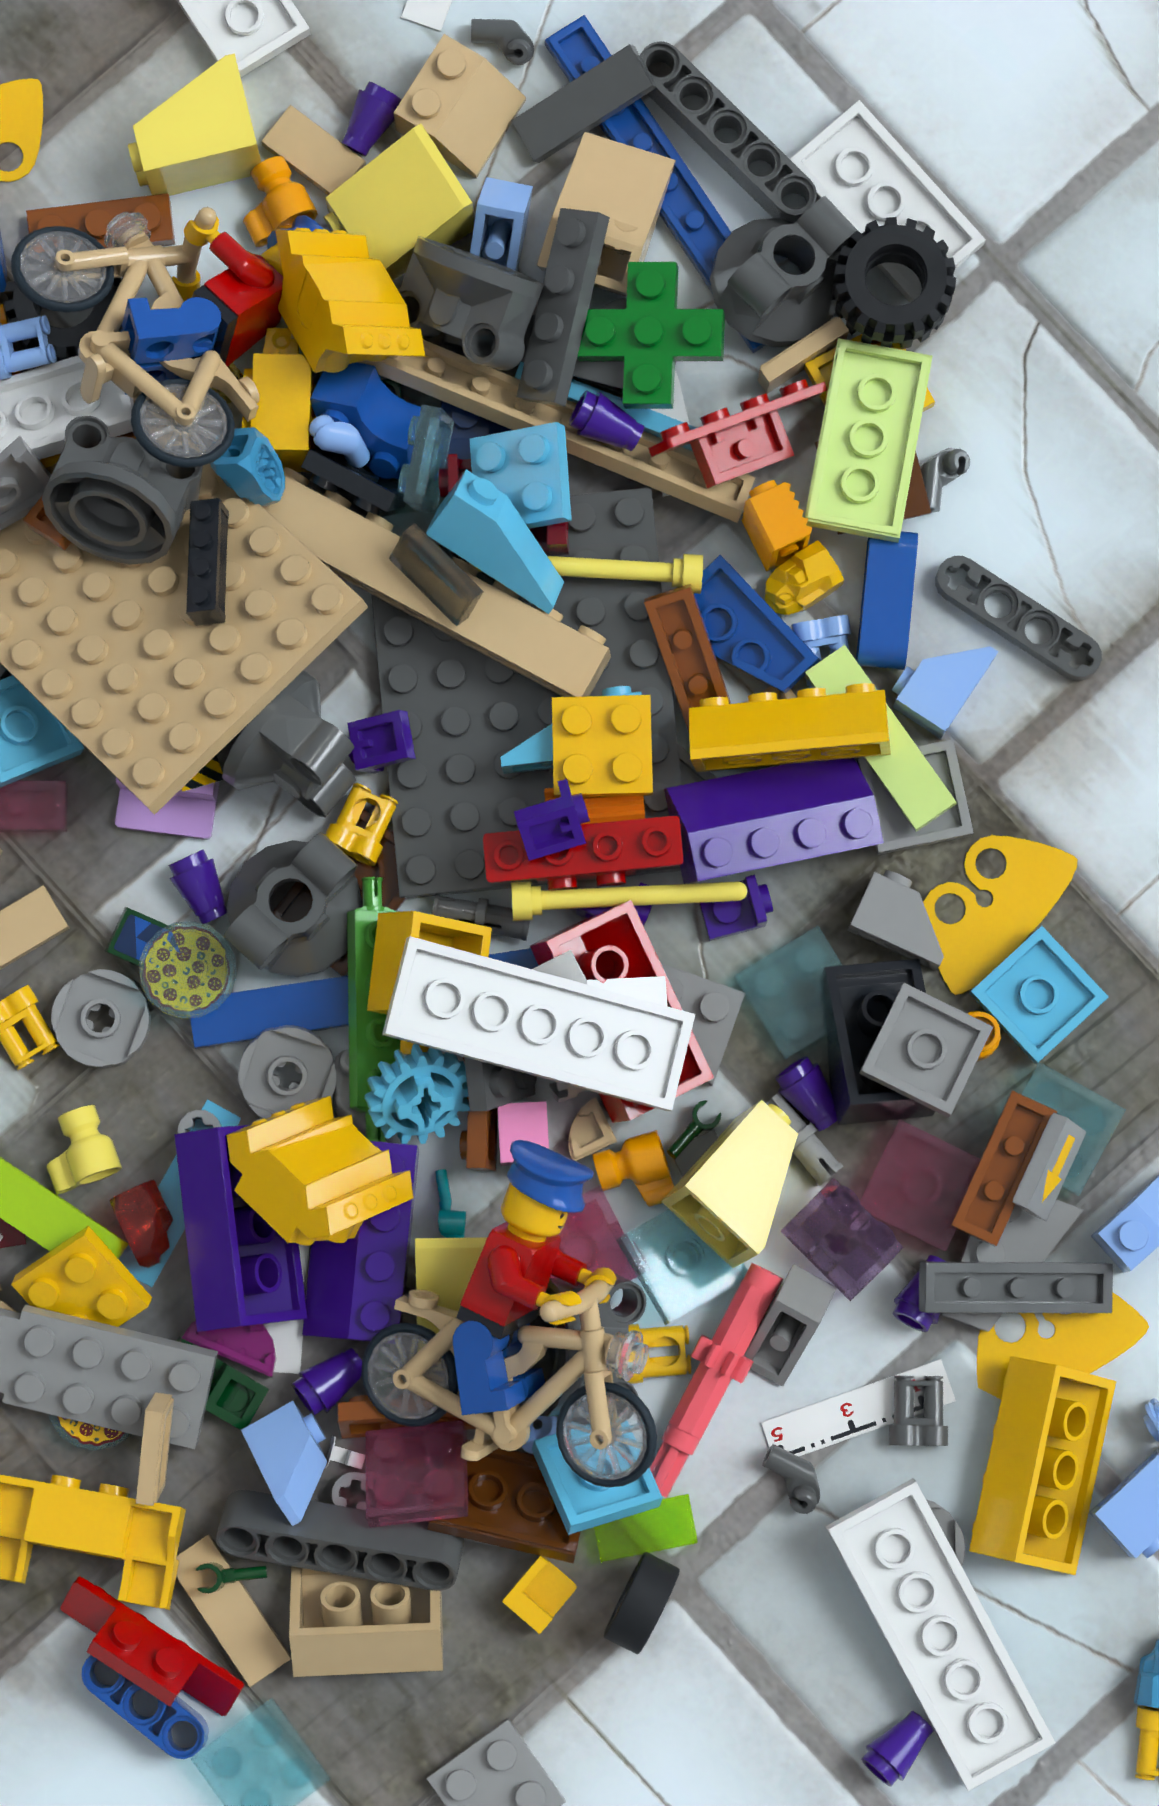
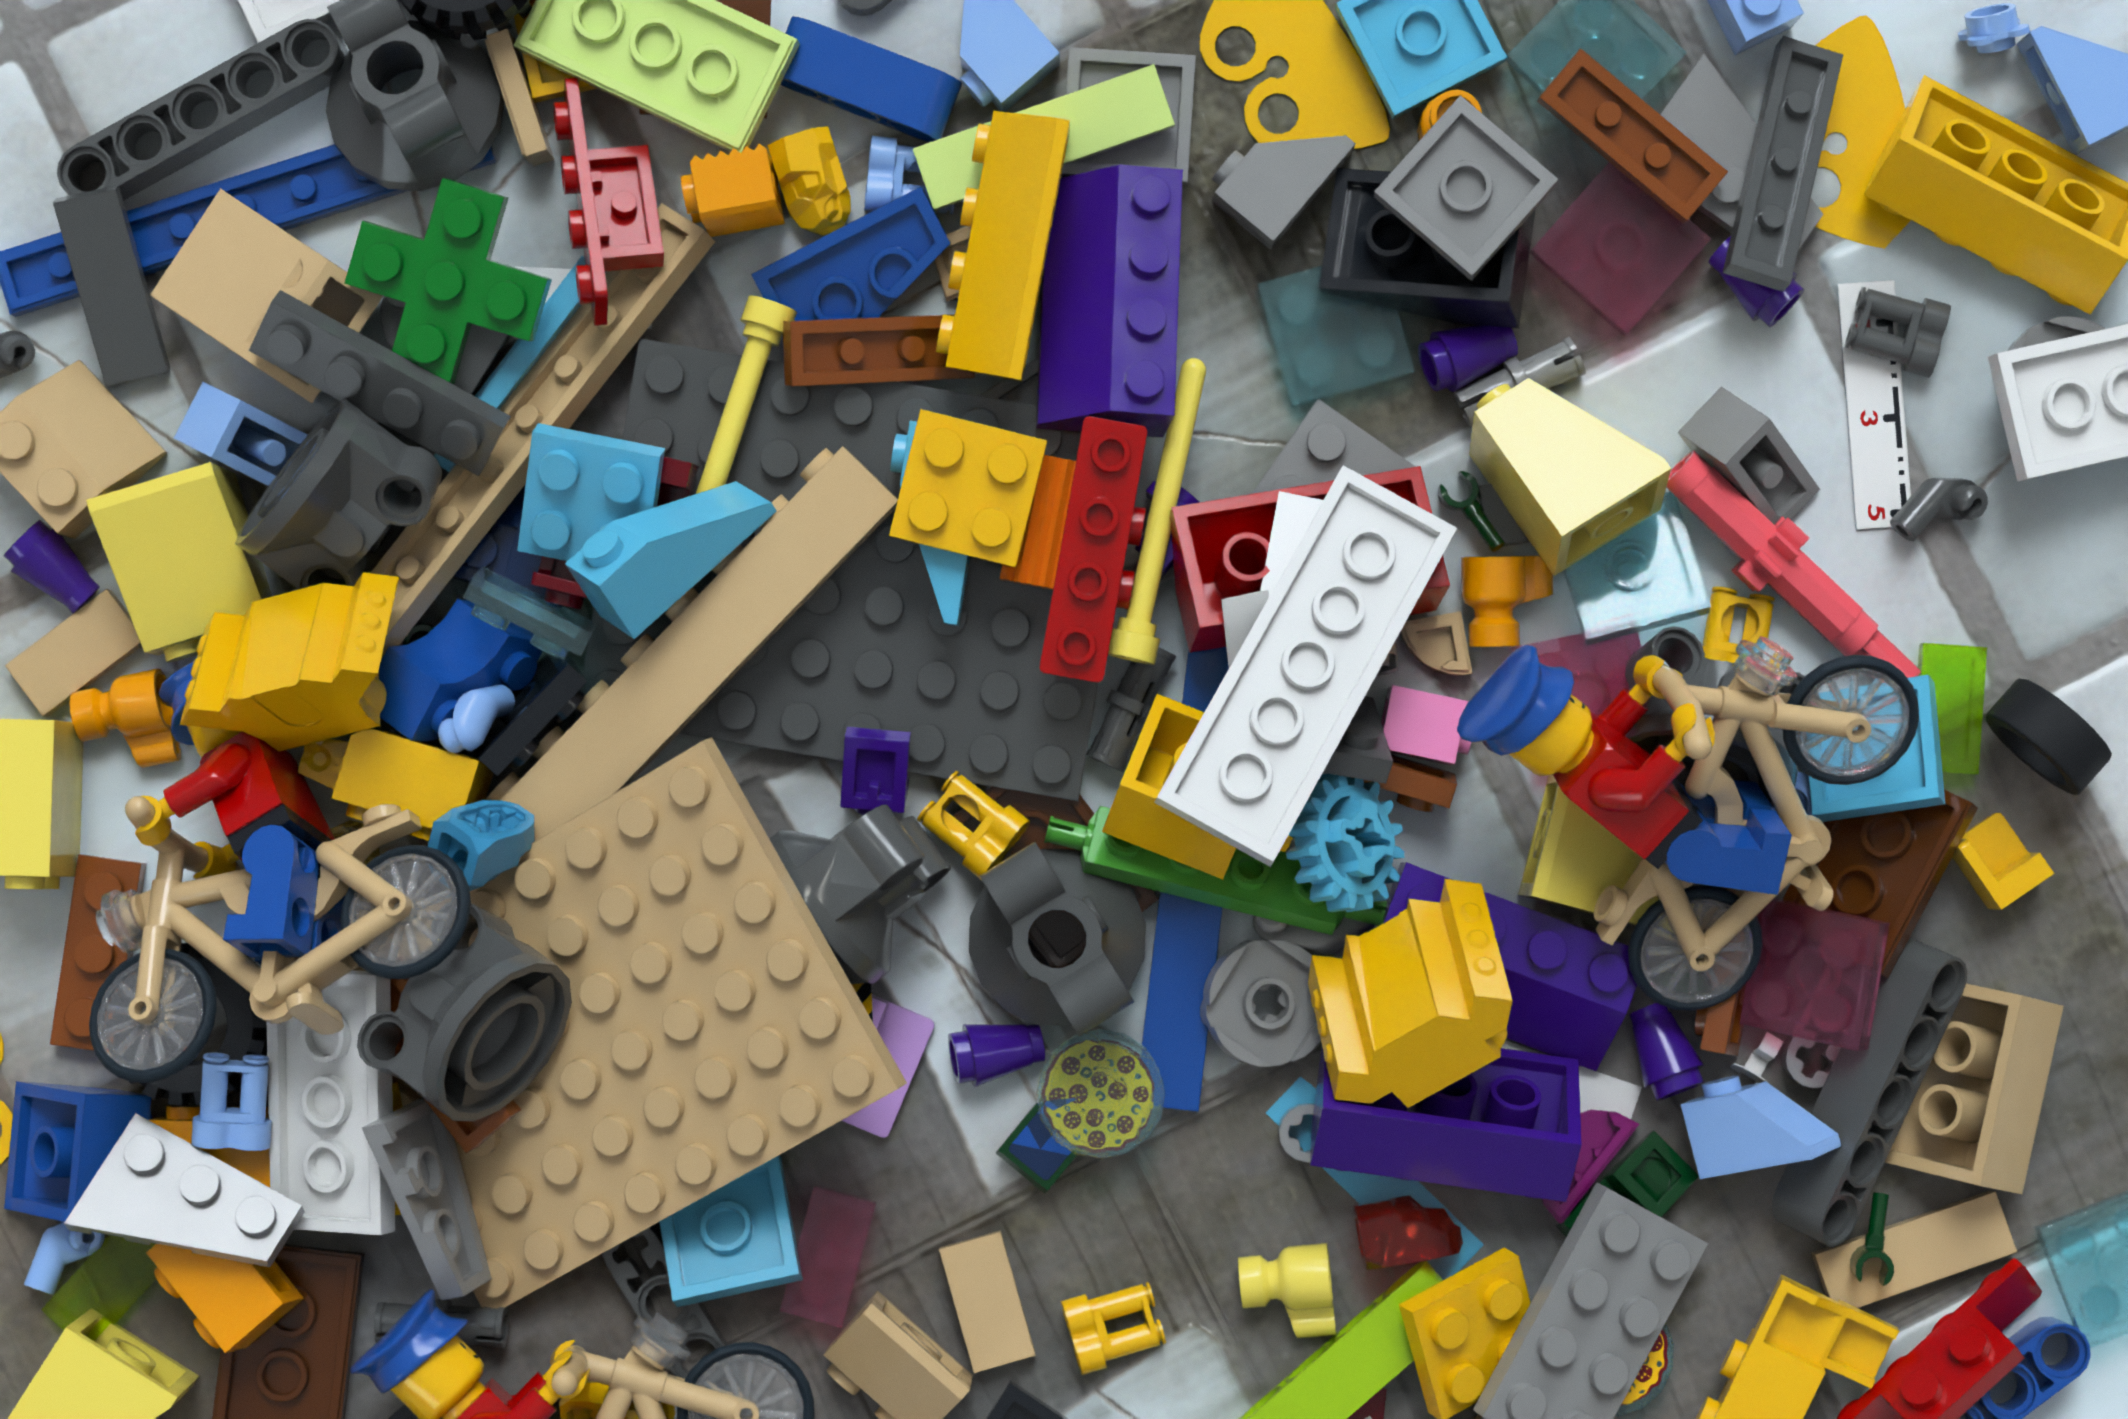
camera: 70 degrees left, 5 degrees up
(87, 994) = (1136, 1256): light grey plate -> none
(154, 1449) = (1702, 1293): tan tile -> none
(207, 561) = (594, 928): black piece -> none
(436, 574) = (689, 640): clear smoke tile -> none
(450, 1222) = (1505, 847): teal hand -> none
(553, 824) = (1057, 576): dark purple bracket -> none
(605, 422) = (542, 372): dark purple cone -> none
(736, 917) = (1220, 390): dark purple bracket -> none
(820, 1237) = (1663, 362): clear purple brick -> none
(1049, 1166) = (1645, 78): light grey tile -> none

